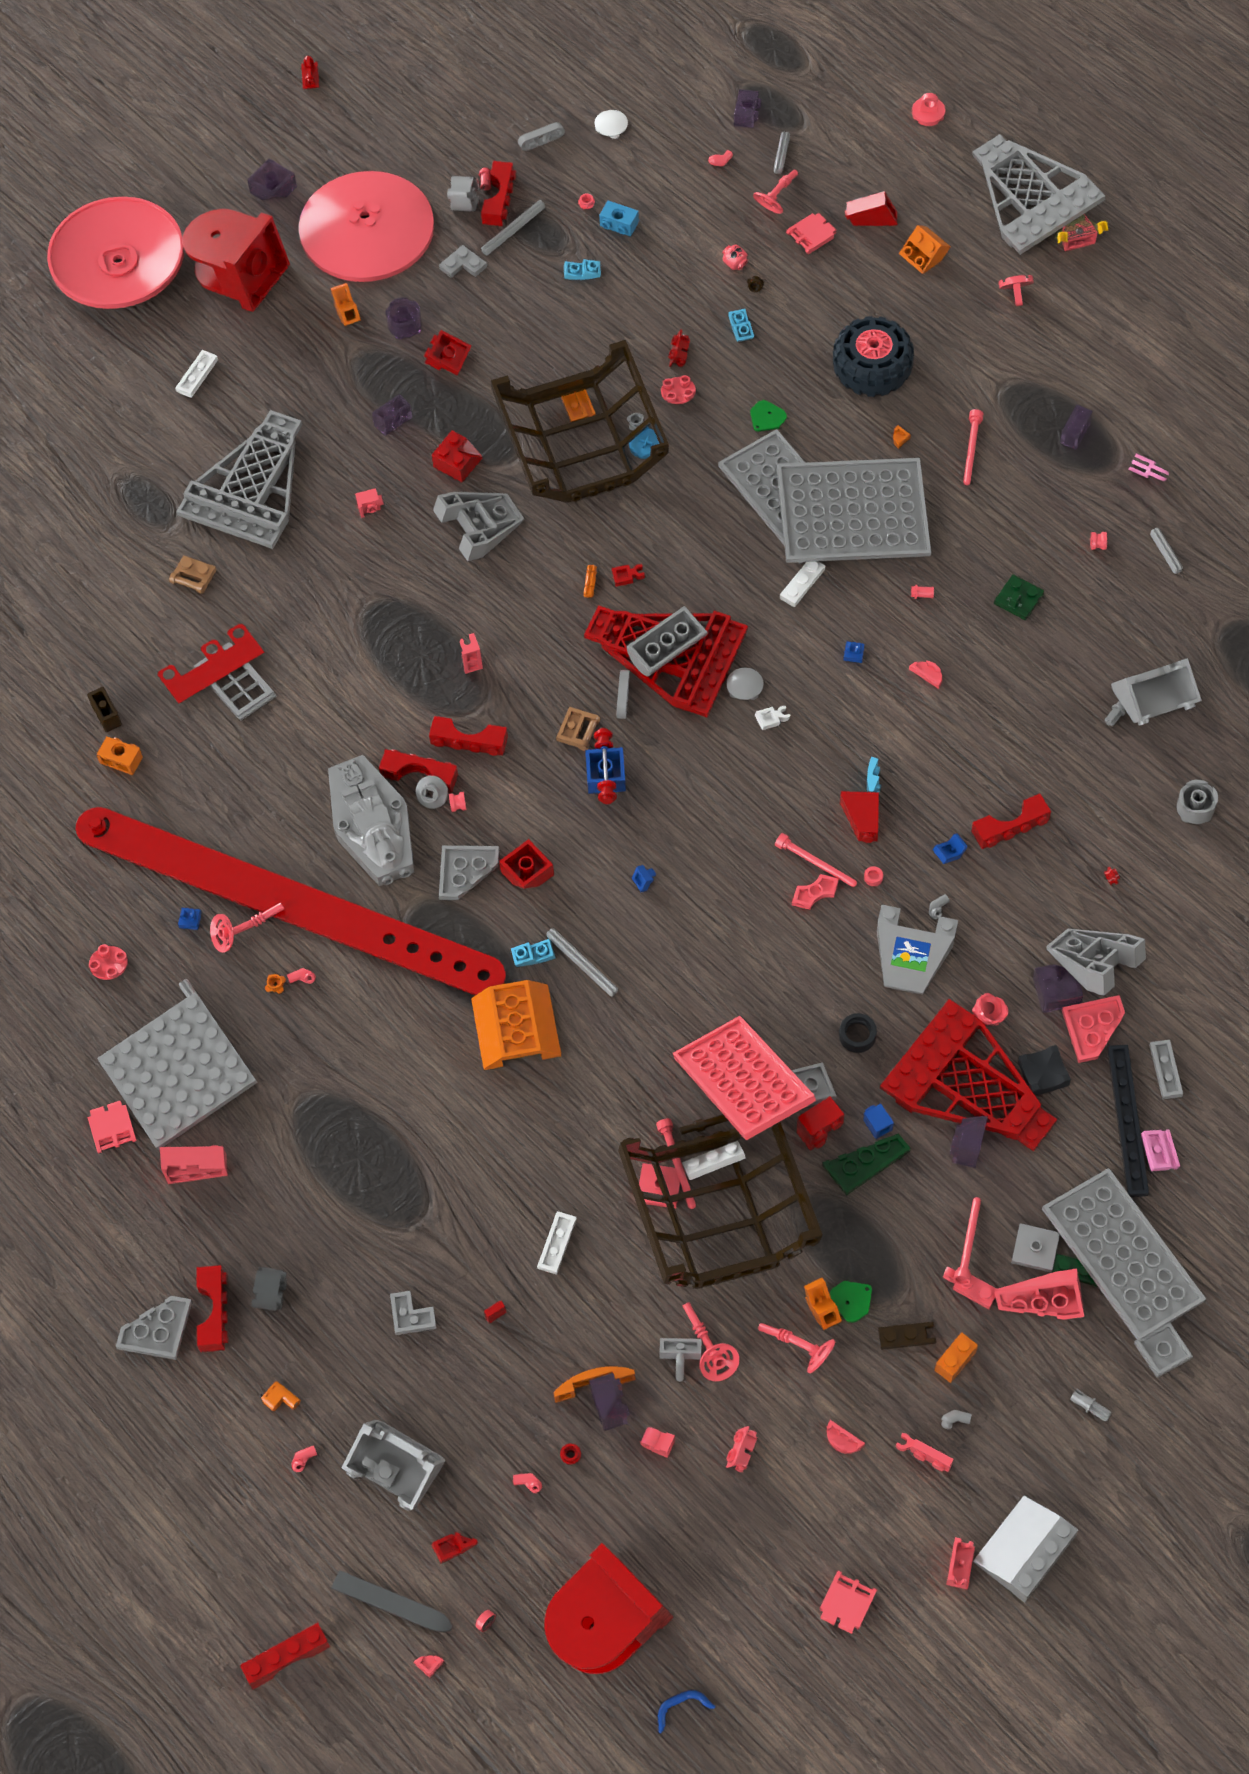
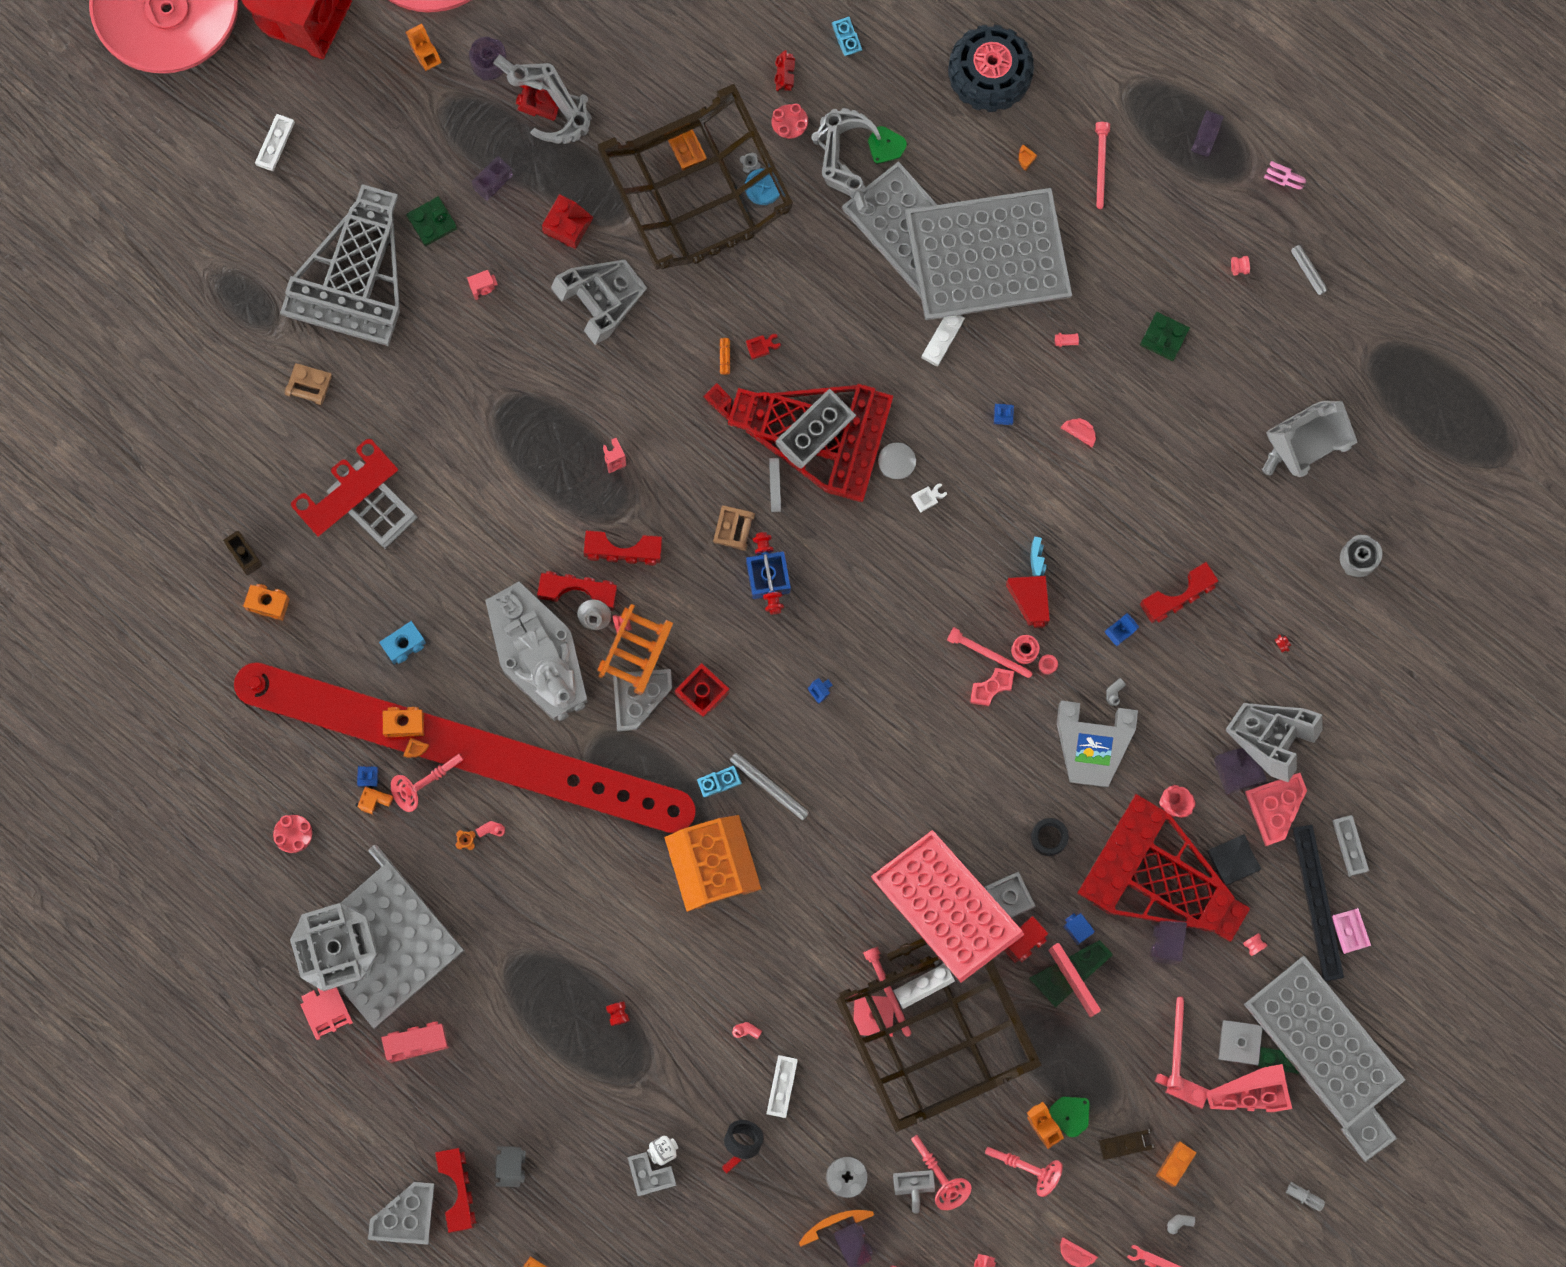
camera: 15 degrees left, 15 degrees up
(118, 1044) = (313, 943): none -> light grey piece
(189, 937) = (370, 799): none -> orange piece
(238, 876) = (415, 723): none -> orange brick
(239, 895) = (415, 748): none -> orange tile
(247, 793) = (391, 643): none -> dark azure brick
(330, 449) = (431, 221): none -> dark green hinge
(400, 1156) = (617, 1013): none -> red wheel
(426, 1290) = (662, 1150): none -> white head
(453, 332) = (545, 77): none -> light grey piece
(475, 838) = (647, 665): none -> orange fence
(509, 1295) = (740, 1150): none -> black tyre
(528, 1184) = (745, 1029): none -> coral arm
(578, 617) = (719, 400): none -> red slope
(617, 1345) = (836, 1182): none -> light grey brick
(713, 405) = (842, 179): none -> light grey piece
(851, 851) = (1025, 640): none -> coral wheel
(866, 1162) = (1074, 980): none -> coral tile
(1059, 1153) = (1255, 944): none -> coral wheel

